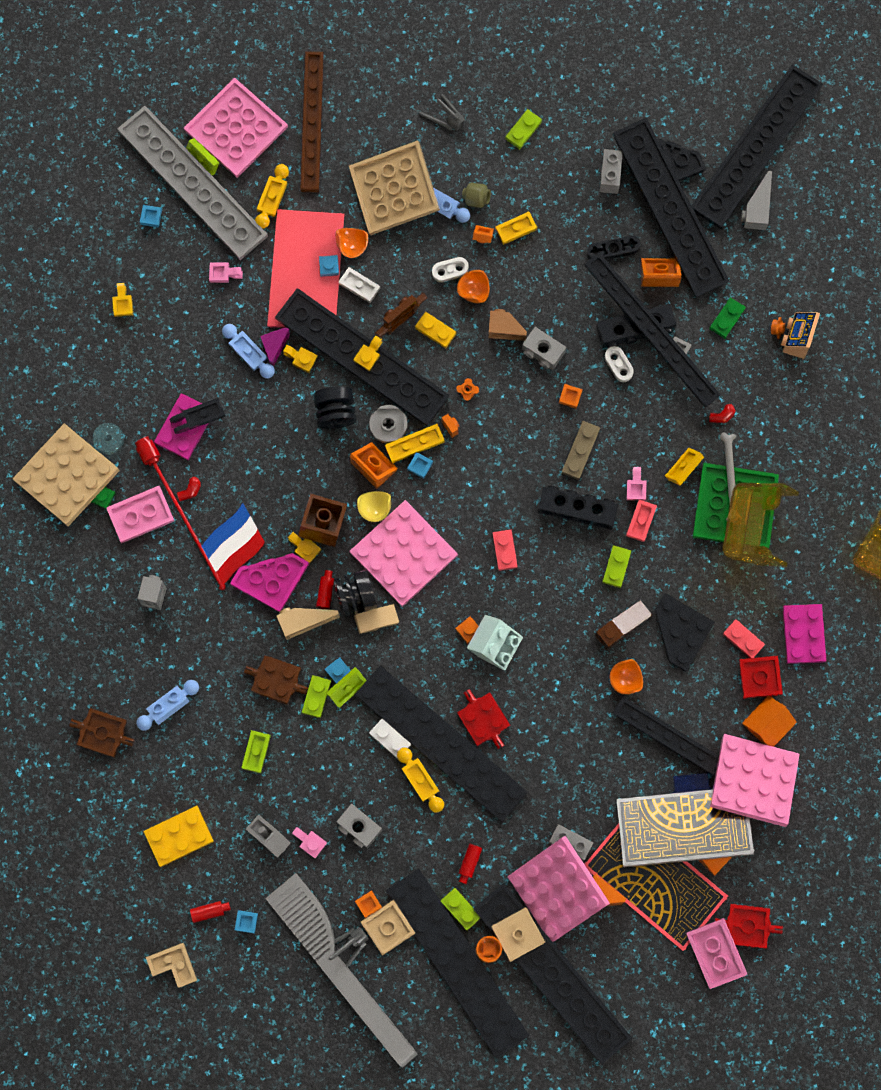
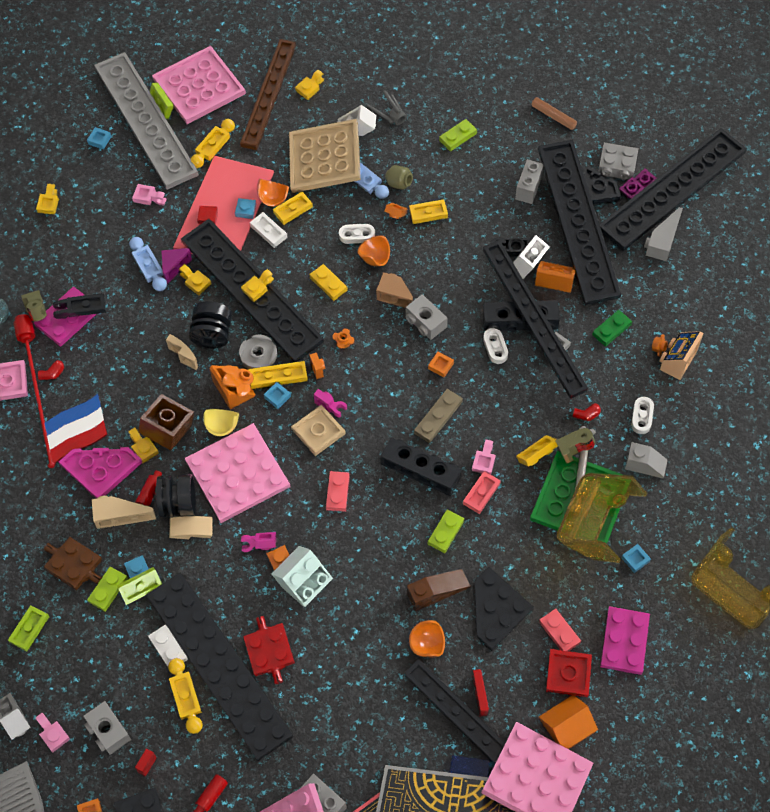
camera: 15 degrees right, 15 degrees down
(148, 421) = (34, 305): none -> olive leg
(292, 281) = (206, 213): none -> red tile
(318, 443) = (185, 354): none -> tan slope
(352, 104) = (309, 87): none -> yellow plate
(377, 254) = (292, 208): none -> yellow plate
(379, 460) = (237, 378): none -> orange plate
(396, 317) = (297, 258): reddish brown plate -> none
(404, 848) = (145, 762): none -> red tile
(423, 133) = (365, 119): none -> white slope
(448, 617) = (261, 541): none -> dark pink plate
(468, 460) = (327, 401): none -> dark pink plate
(469, 492) = (318, 430): none -> tan plate
(617, 81) = (554, 113): none -> nougat axle
(631, 259) = (530, 256): none -> white slope
(685, 714) = (480, 692): none -> red tile
(695, 125) = (618, 161): none -> light grey plate
(720, 149) = (637, 184): none -> magenta slope
(720, 453) = (575, 443): none -> olive leg
(776, 407) = (642, 416): none -> white plate
(788, 453) = (645, 460): none -> light grey slope
(798, 553) = (636, 558): none -> dark azure plate

